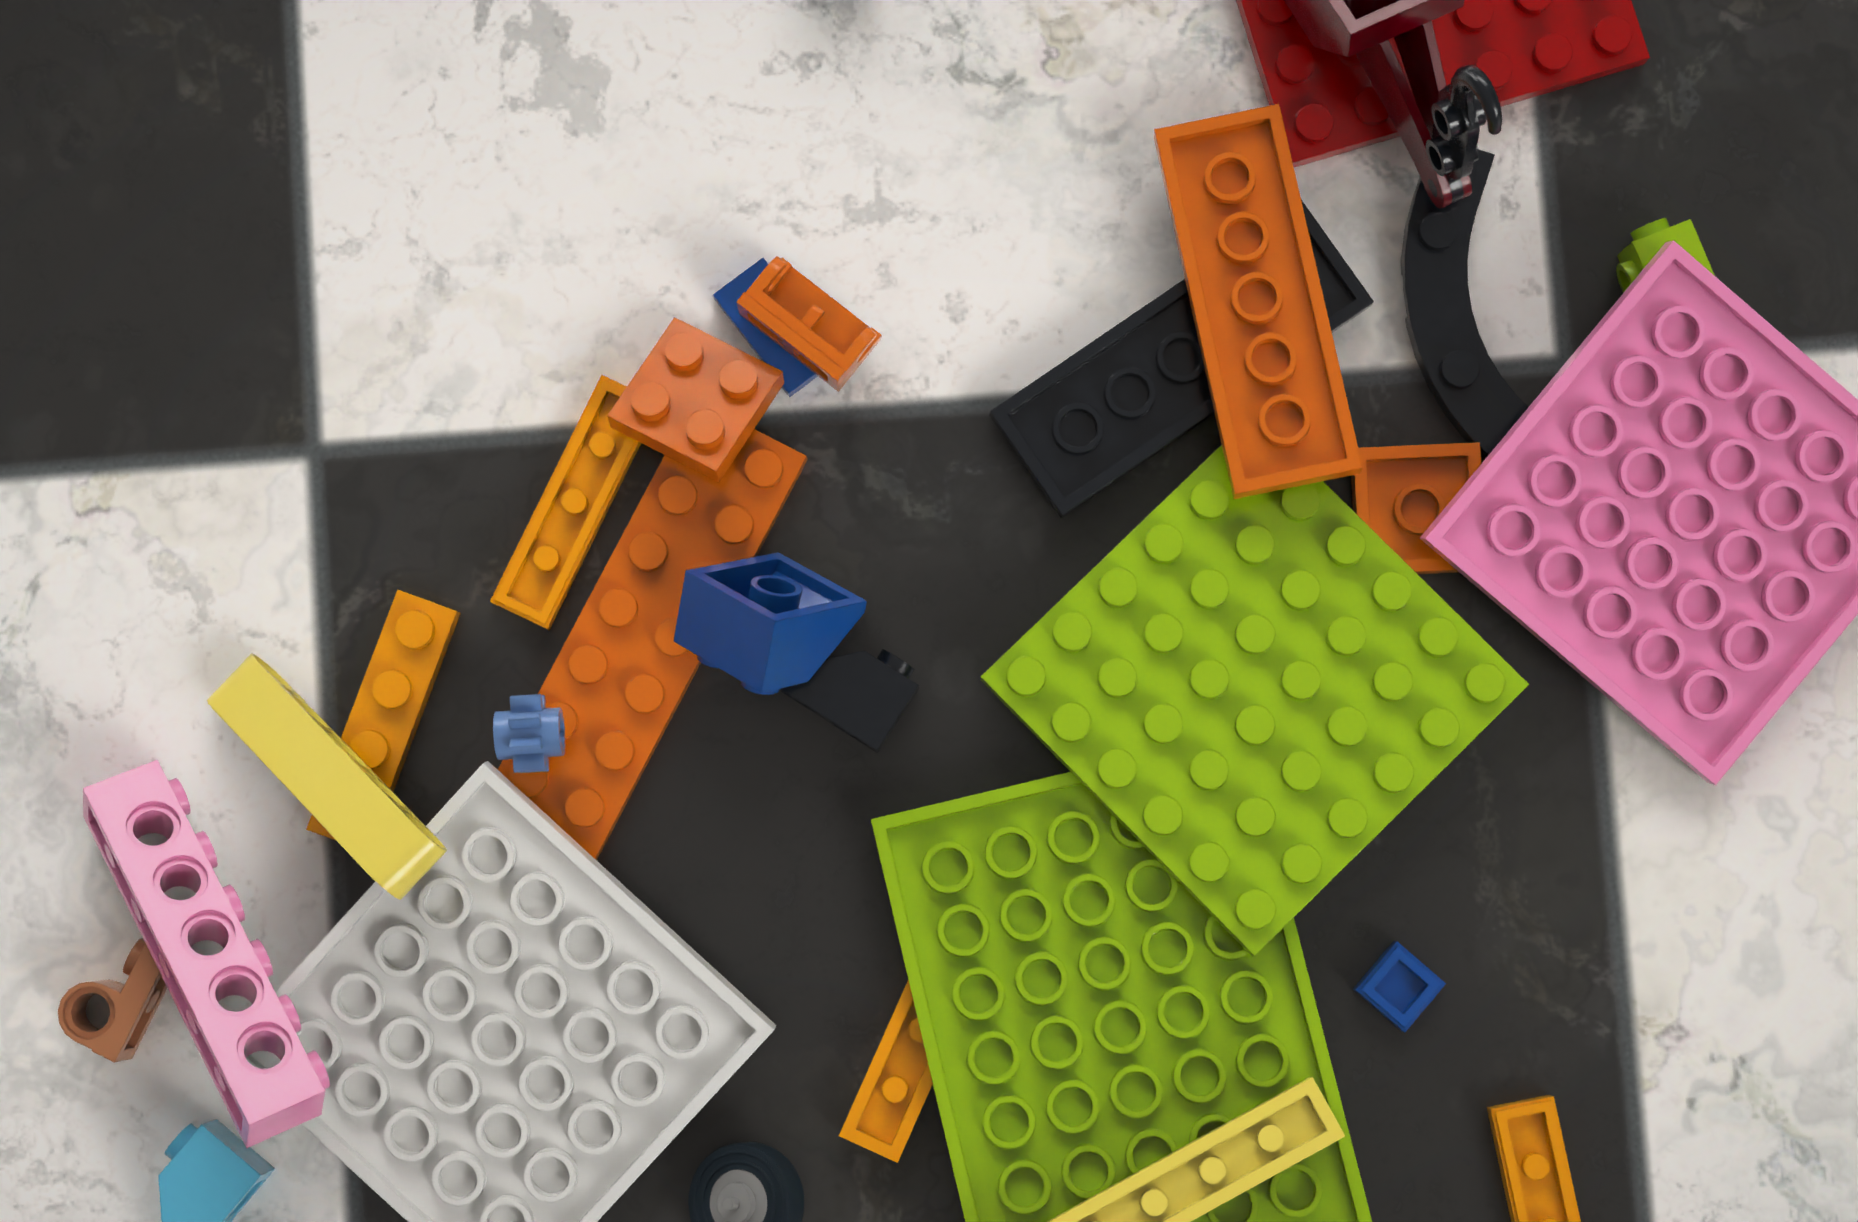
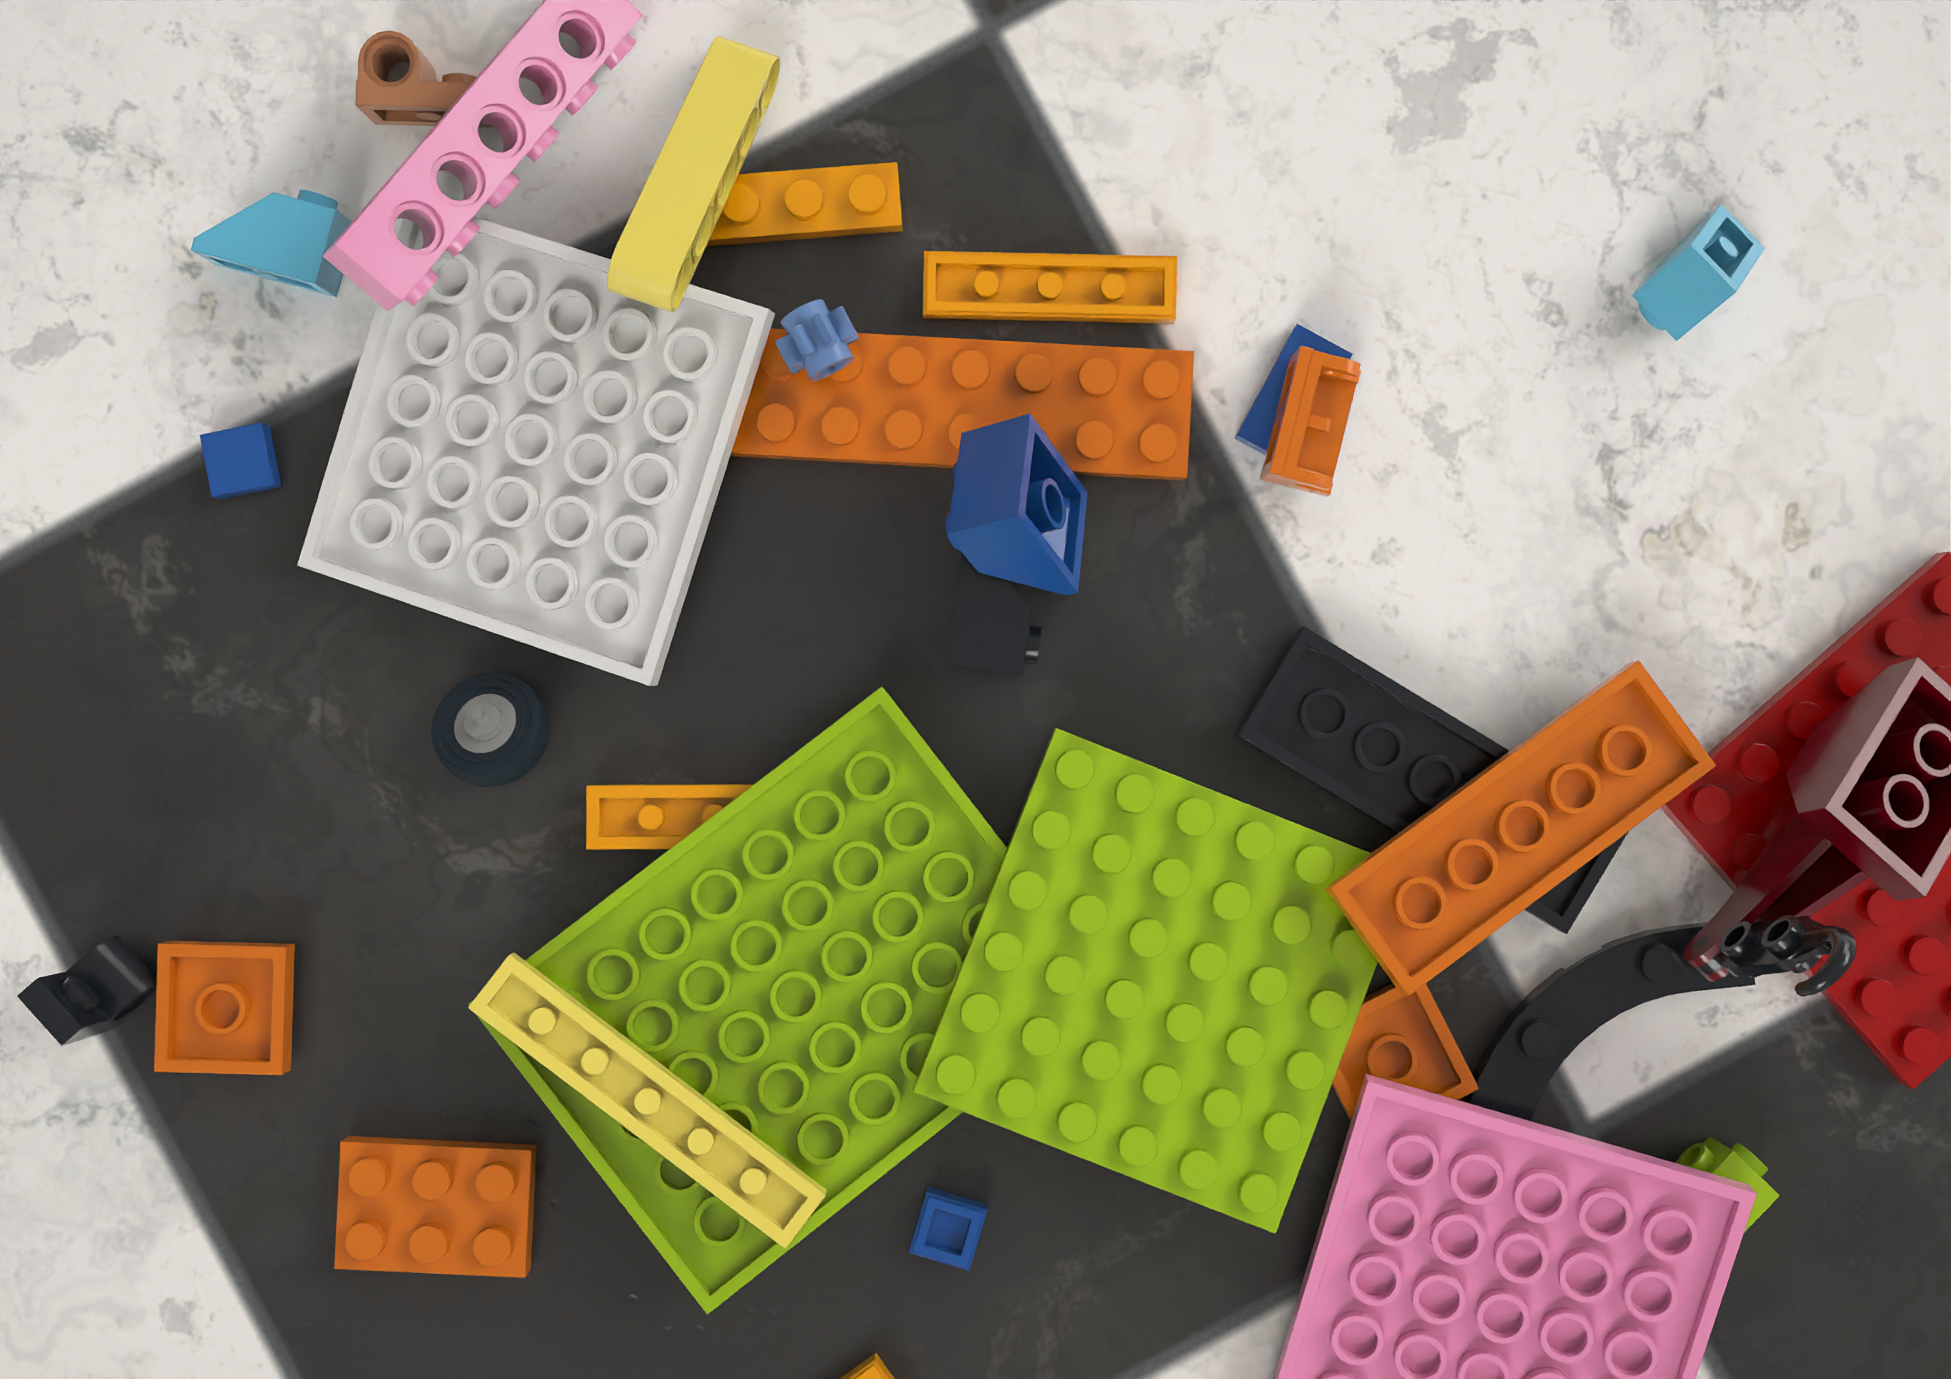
camera: 60 degrees right, 5 degrees up
(696, 399) = (1193, 352): orange plate -> none

